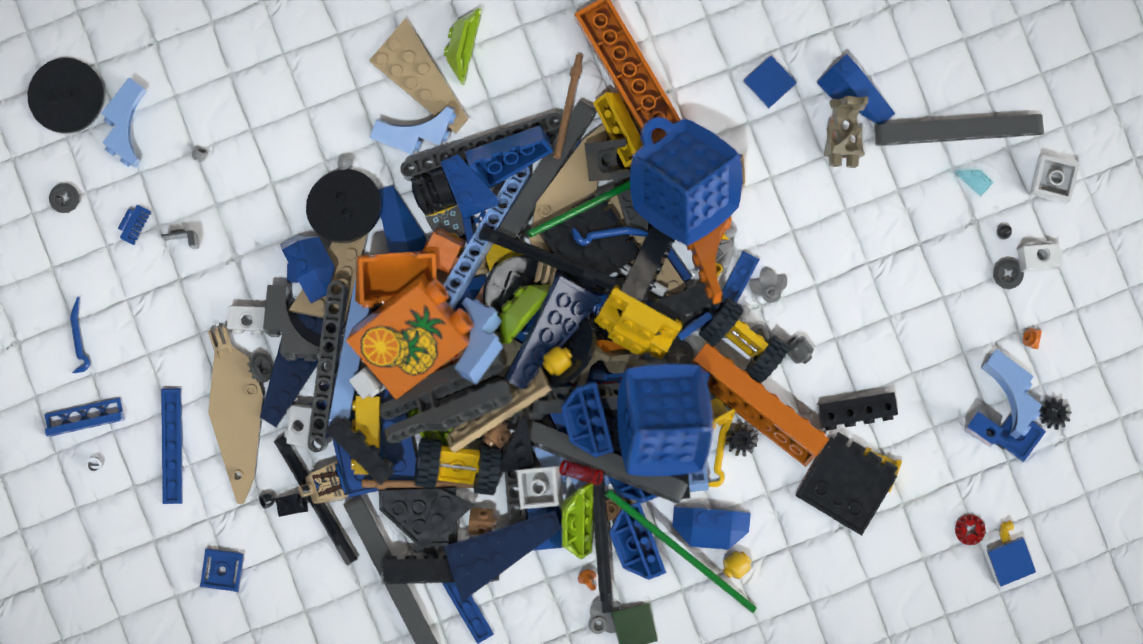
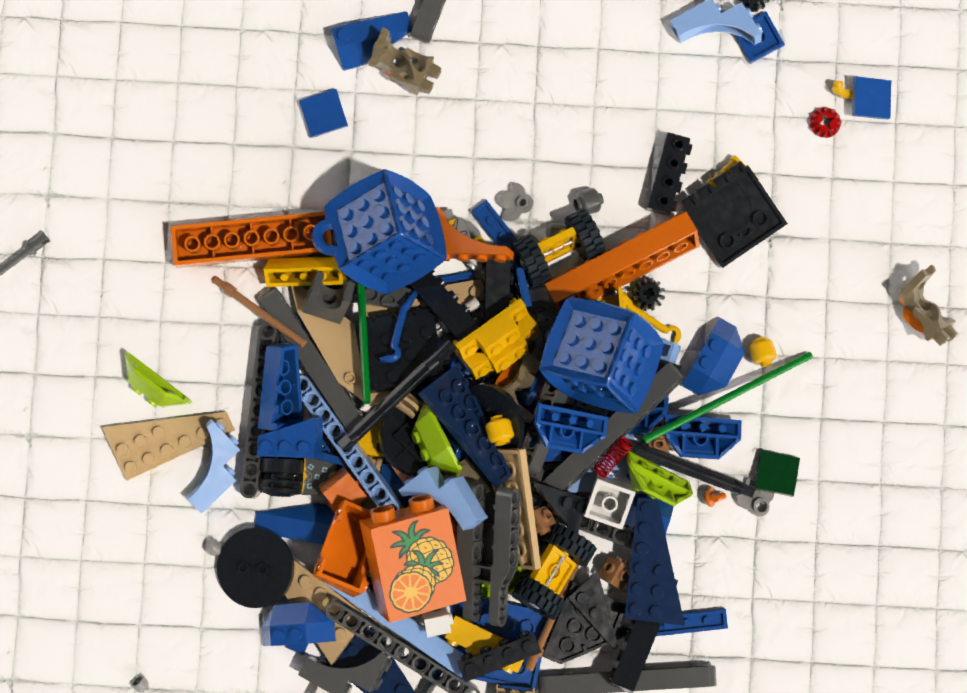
camera: 65 degrees left, 0 degrees up
(978, 428) = (736, 70): blue torso -> none

